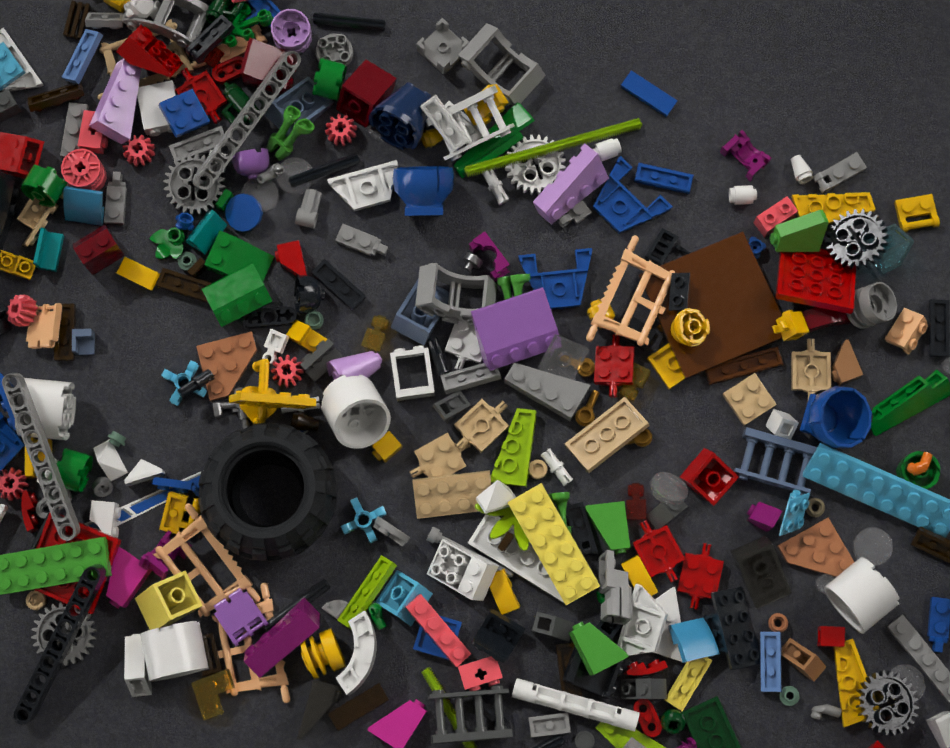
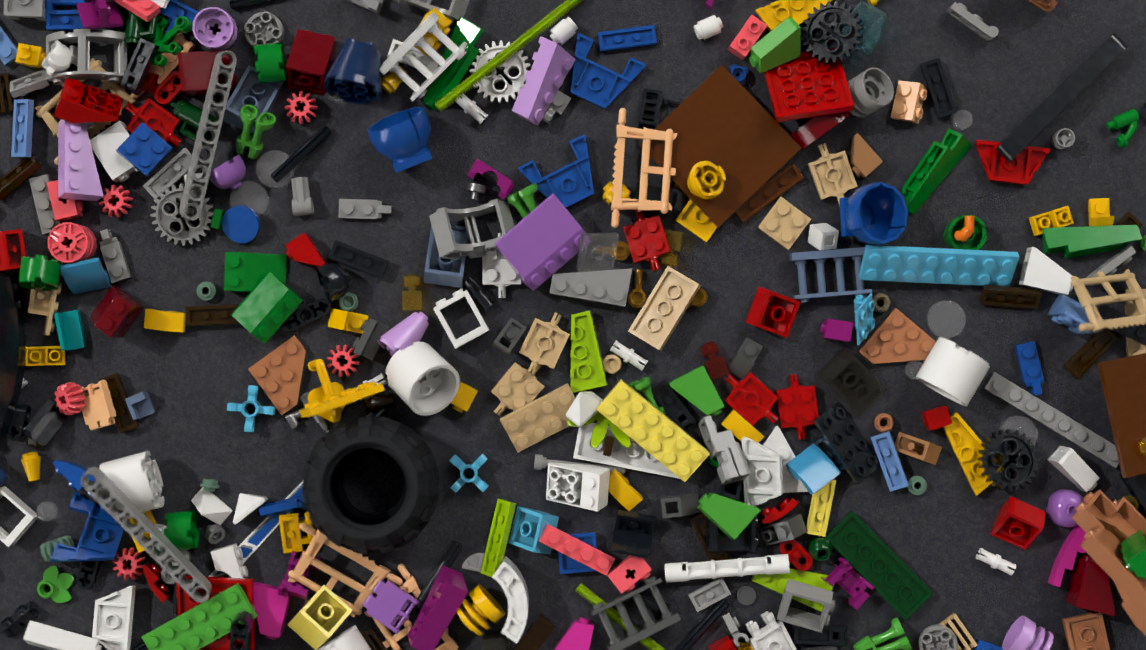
camera: 25 degrees left, 10 degrees up
(166, 244) = (181, 283): green plate -> none
(184, 221) = (185, 251): blue plate -> none
(196, 383) = (262, 406): black axle -> none
(197, 269) = (219, 295): dark brown tile -> none
(206, 232) = (212, 257): teal slope -> none
(271, 173) = (252, 175): light grey arm -> none
(276, 344) = (322, 338): white plate -> none
(366, 186) = (347, 154): white wing -> none
(375, 612) = (513, 552): green arm -> none
(395, 534) = (495, 473): light grey tile -> none
(444, 123) = (399, 67): white tile -> none
(468, 378) = (514, 303): light grey plate -> none
(668, 488) = (739, 337): clear tile -> none
(679, 291) = (683, 148): black hinge -> none
(791, 325) = (799, 141): yellow brick -> none
(817, 711) = (954, 485): light grey arm -> none

